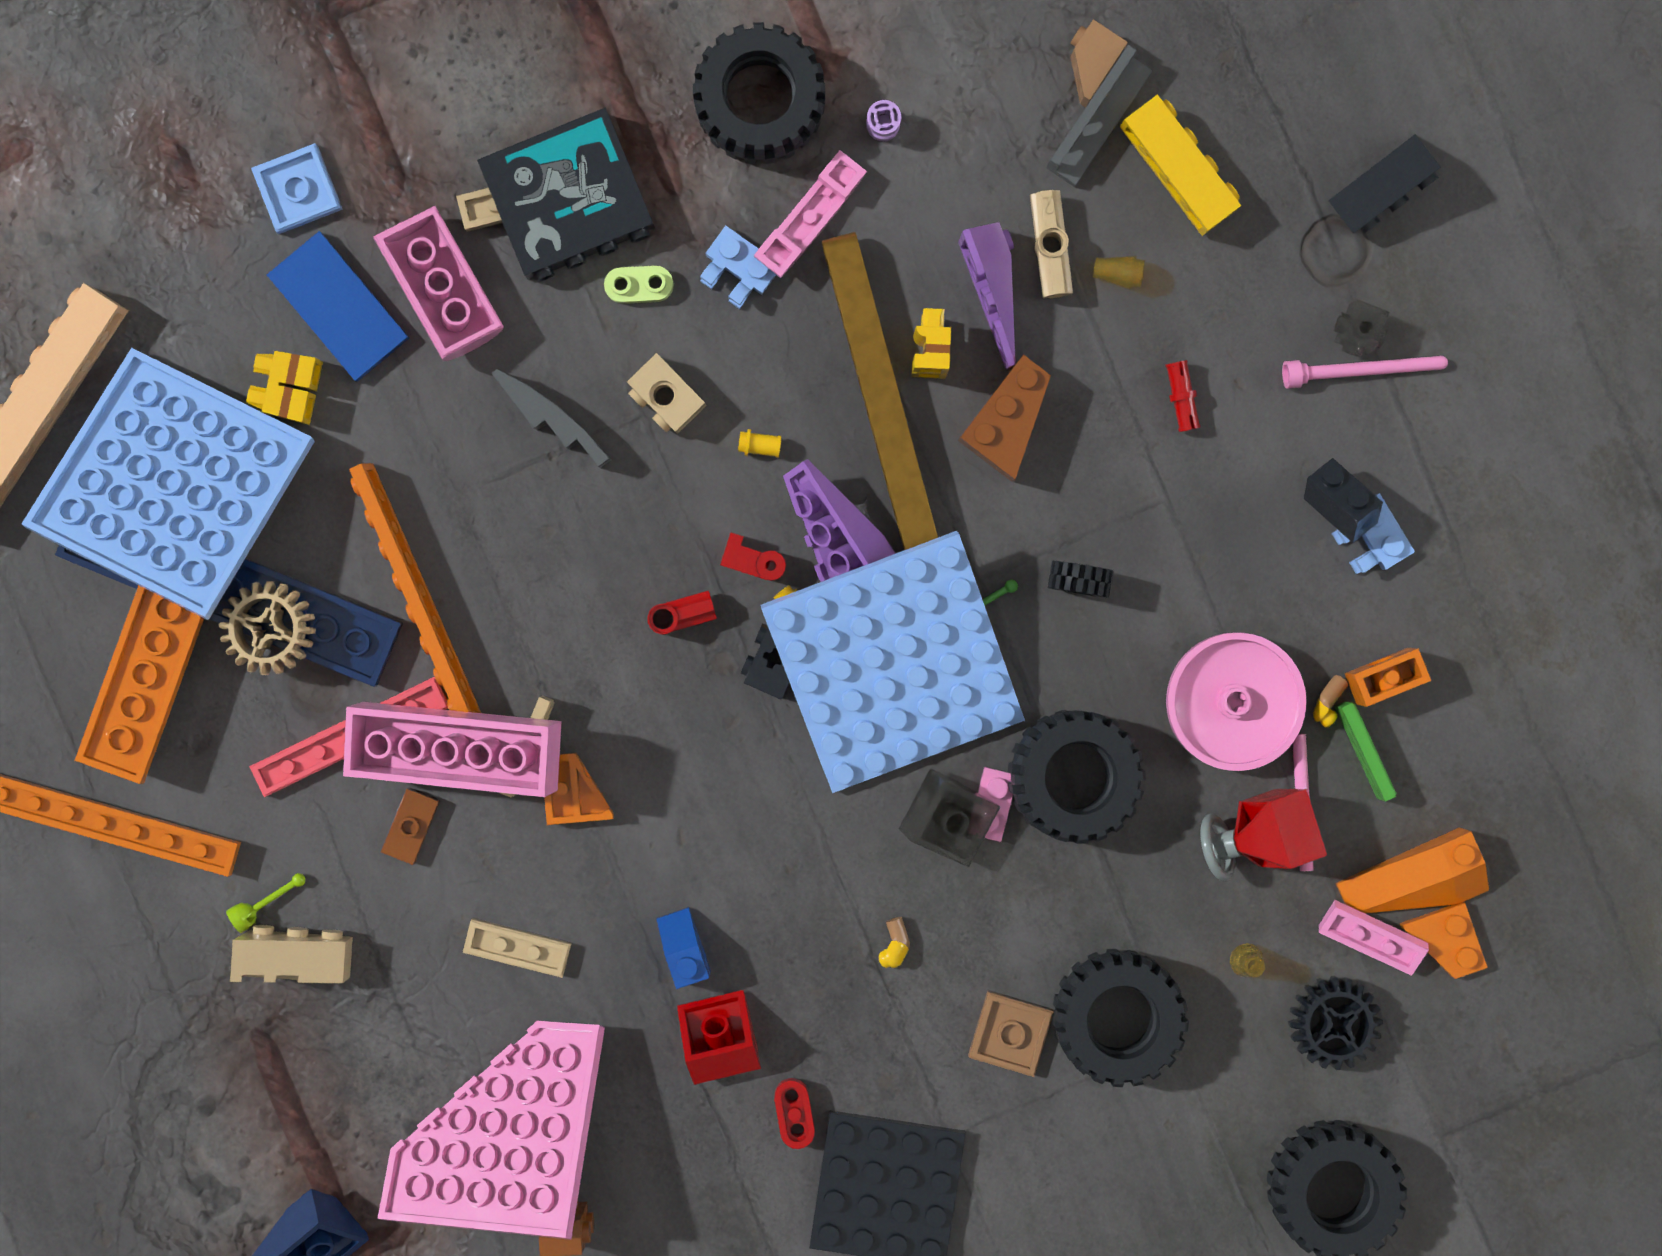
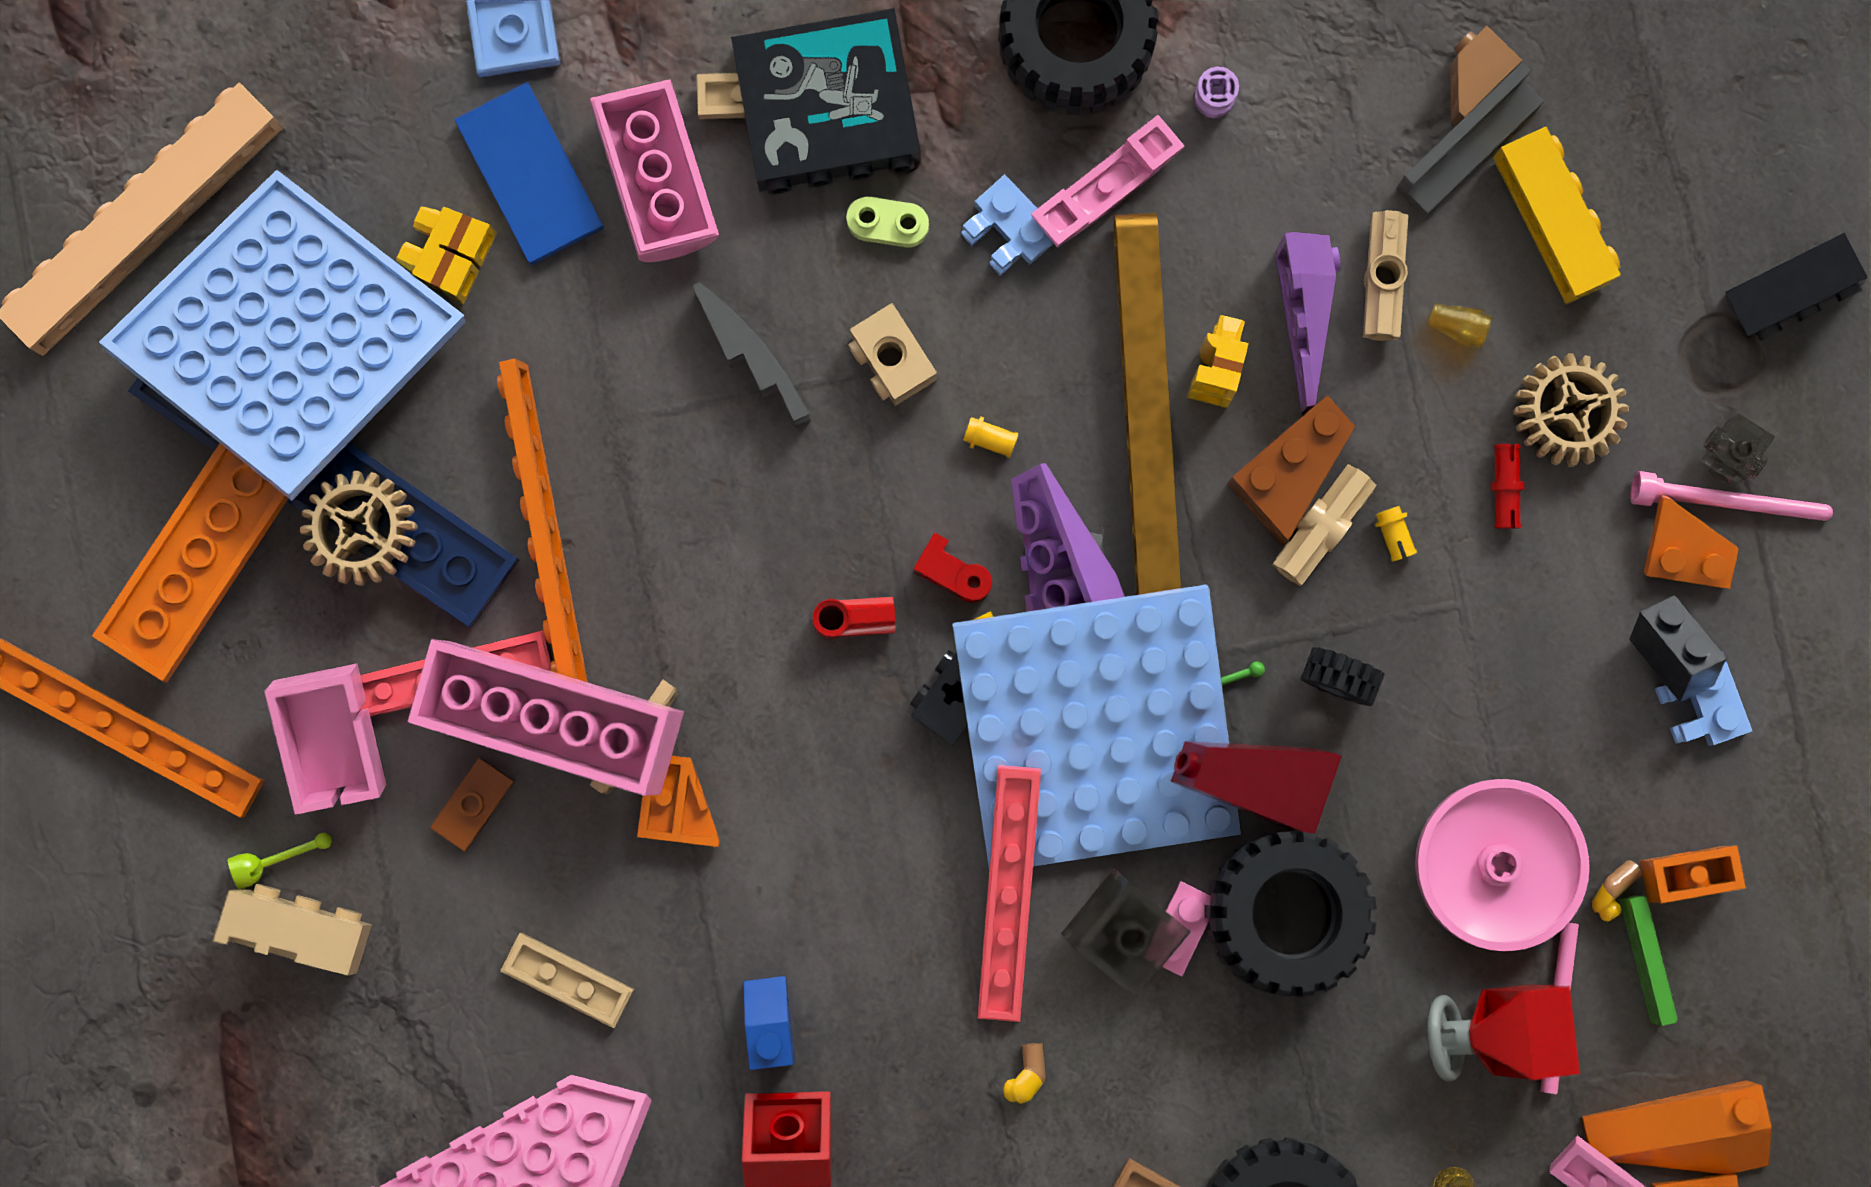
camera: 15 degrees right, 5 degrees down
(281, 801) = (325, 738): none -> bright pink piece
(850, 806) = (1009, 893): none -> coral tile
(1035, 675) = (1263, 780): none -> dark red slope
(1042, 458) = (1324, 525): none -> tan piece
(1099, 450) = (1394, 530): none -> yellow pin
(1247, 307) = (1574, 425): none -> tan gear
(1337, 416) = (1688, 549): none -> orange wing

